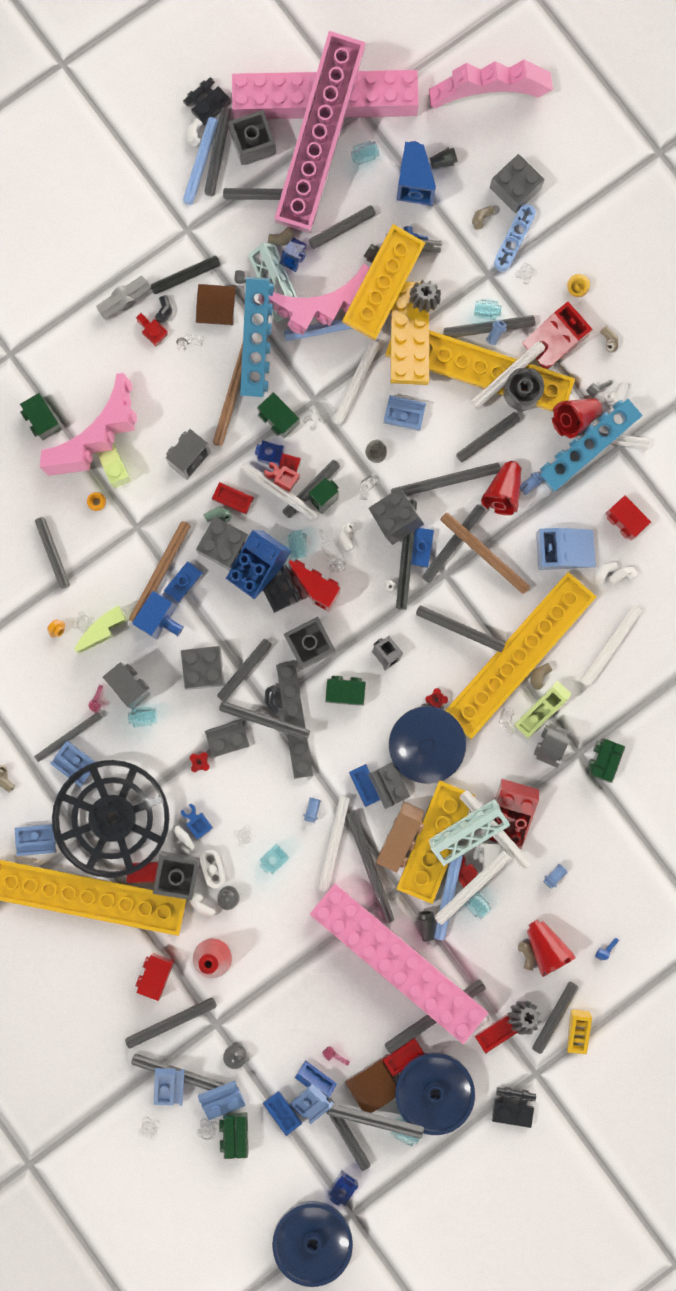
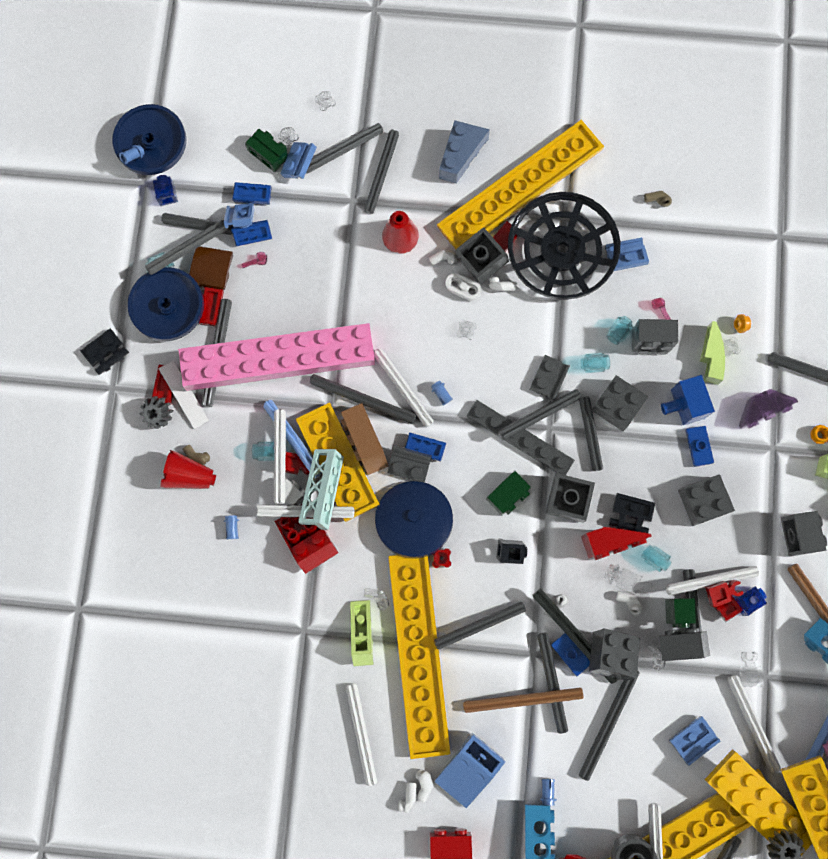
camera: 140 degrees right, 5 degrees down
(35, 840) = (594, 182): medium blue plate -> none
(68, 736) = (650, 267): dark grey bar -> none
(96, 973) = (461, 149): none -> sand blue wedge
(110, 558) = (765, 406): none -> clear purple slope
(154, 977) = (423, 185): red brick -> none
(162, 566) = (728, 447): medium nougat axle -> none
(168, 1086) = (340, 133): medium blue plate -> none
(185, 713) = (595, 362): none -> clear light blue brick
(198, 824) = (504, 304): blue plate -> none
(204, 762) = (550, 348): red plate -> none
(219, 512) = (733, 519): sand green arm -> none
(228, 897) = (432, 280): dark grey hat -> none
(232, 498) = (736, 540): red tile -> none
(235, 1056) = (319, 193): dark grey hat -> none
(257, 563) = (668, 514): blue slope -> none
(270, 697) = (550, 432): black arm -> none
(277, 852) = (431, 341): clear light blue brick -> none
(278, 415) = (777, 635): dark green brick -> none
(340, 1244) = (132, 154): none -> medium blue pin
(346, 472) = (684, 646): none -> dark grey brick
(376, 451) = (681, 687): clear smoke hat -> none
(426, 924) = (284, 401): pearl dark grey cone -> none
(487, 437) = (616, 792): dark grey axle -> none
(492, 1004) = (185, 398): none -> white sticker
(504, 490) = (561, 764): red cone -> none
(537, 676) = (390, 653): dark tan arm -> none
(553, 744) = (327, 613): dark grey brick -> none
(555, 1017) = (135, 436): dark grey axle -> none
(585, 1021) = (116, 454): yellow slope -> none
(604, 954) = (144, 511): blue hand -> none
(606, 760) = (279, 645): dark green brick -> none

